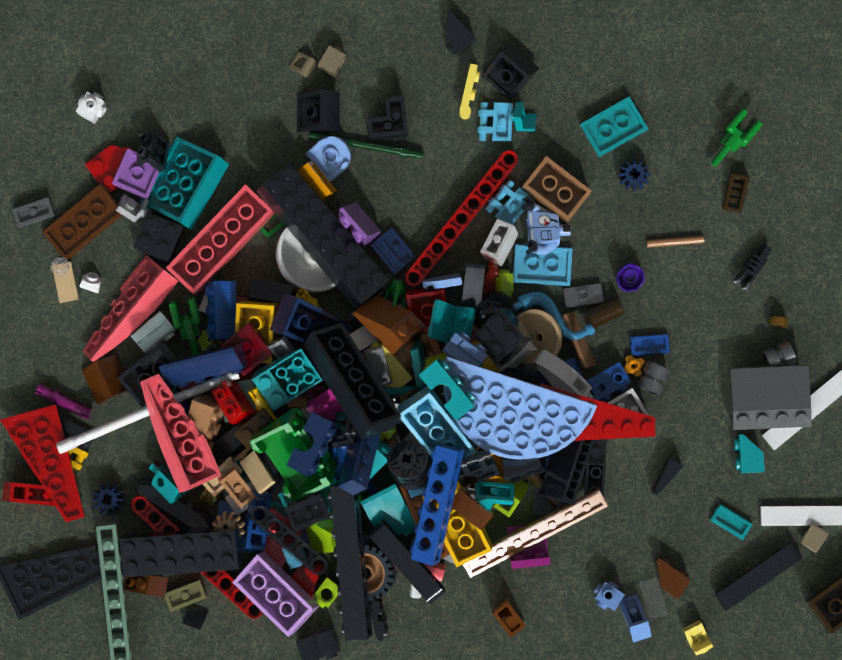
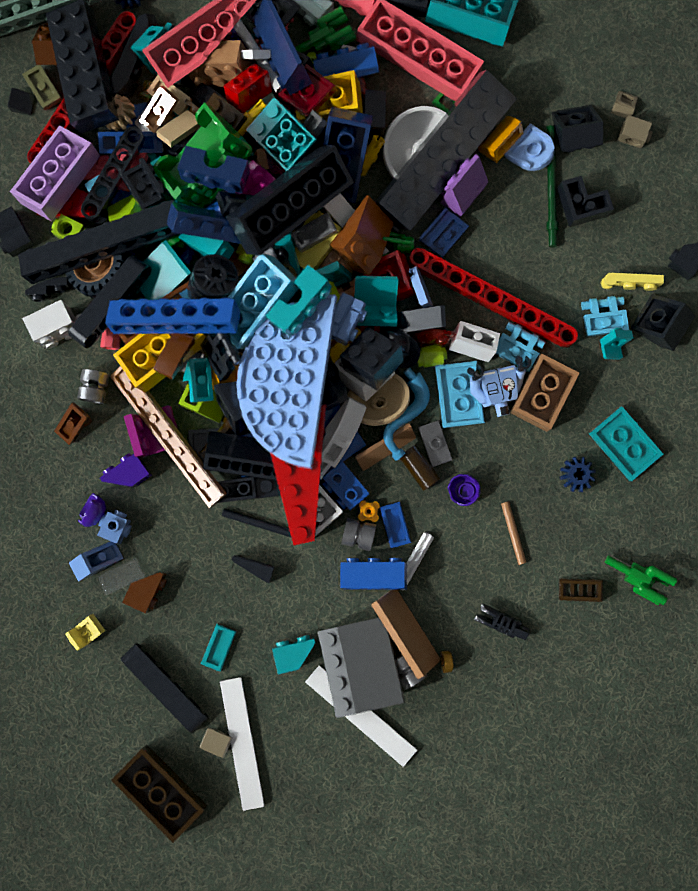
camera: 80 degrees right, 0 degrees up
(207, 389) = (255, 54): none -> white tile
(415, 621) = (50, 324): none -> white brick
(484, 594) = (90, 393): none -> flat silver wheel
(562, 575) = (128, 473): none -> dark purple slope
(590, 613) = (92, 511): none -> dark purple hair
(626, 466) = (256, 522): none -> black bar
(684, 334) = (417, 554): none -> white axle
(691, 371) = (373, 574): none -> blue brick
(747, 352) = (406, 633): none -> medium nougat tile

